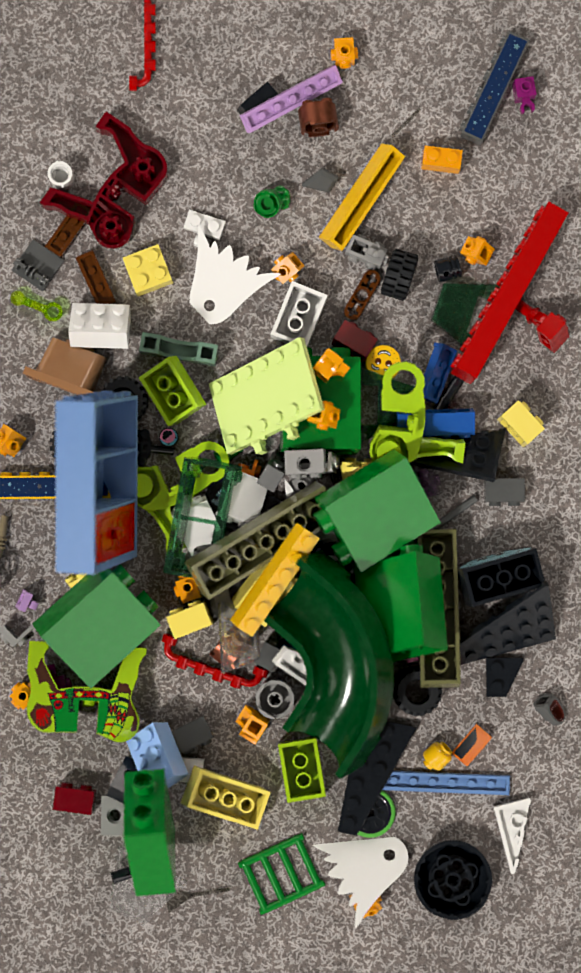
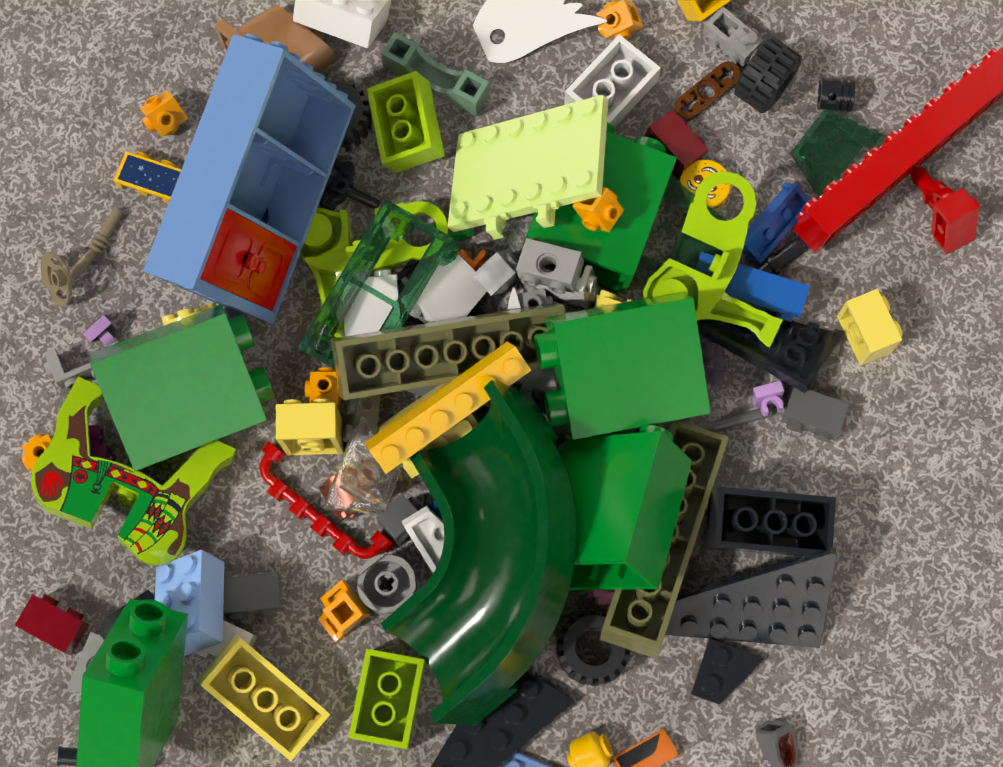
camera: 20 degrees right, 10 degrees down
(168, 437) = (378, 184): tile -> none
(330, 365) = (630, 150): light orange brick -> none
(471, 489) = (768, 394): none -> lavender tile
(474, 248) = (884, 83): light orange brick -> none

